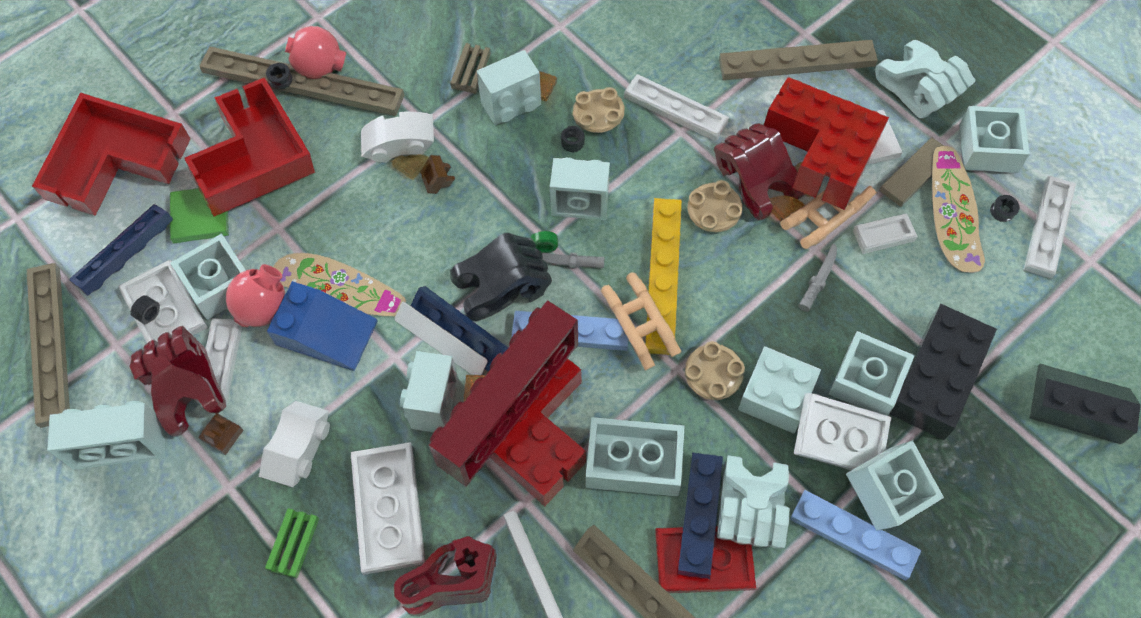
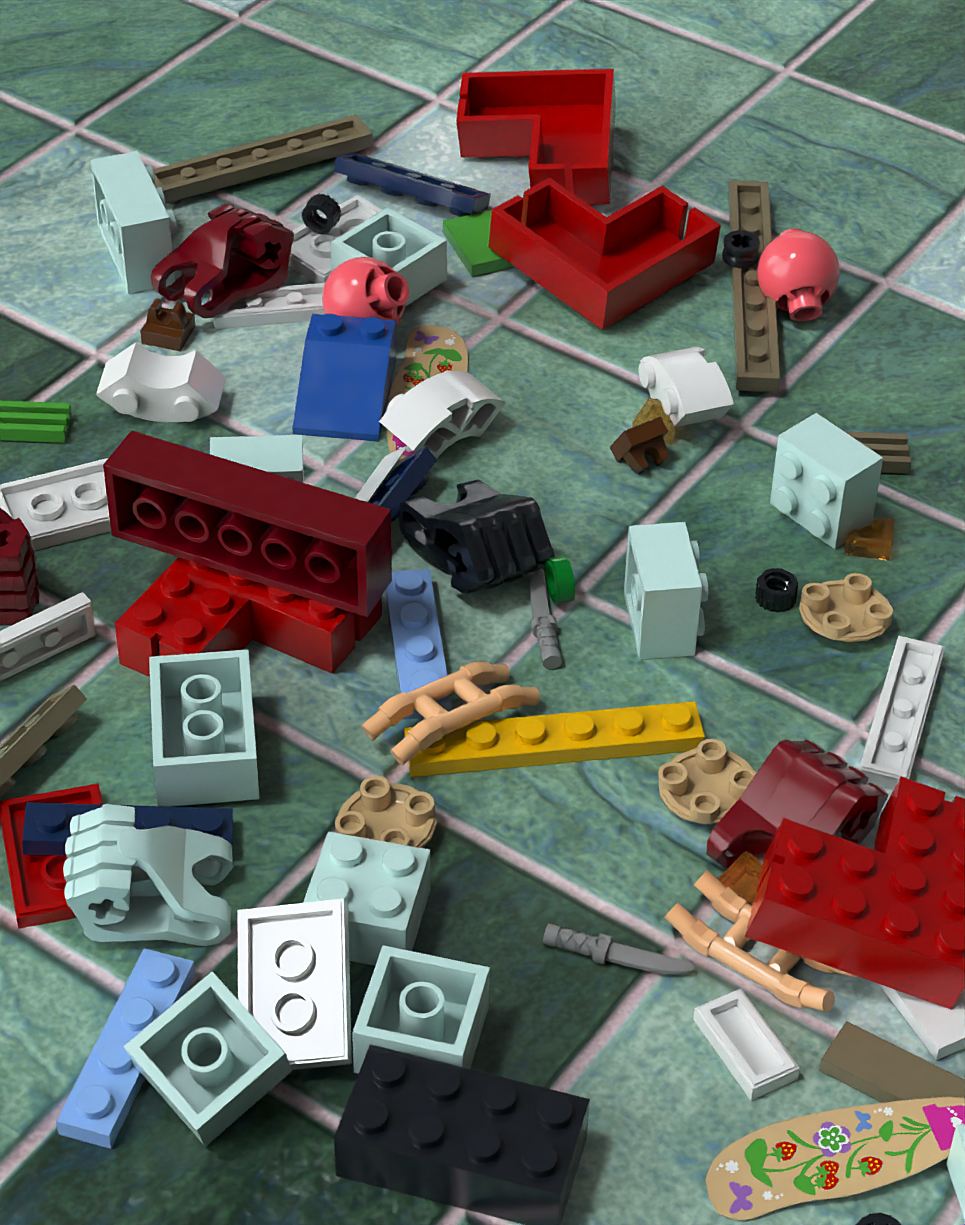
camera: 75 degrees right, 20 degrees down
(385, 279) = (442, 411): none -> white brick

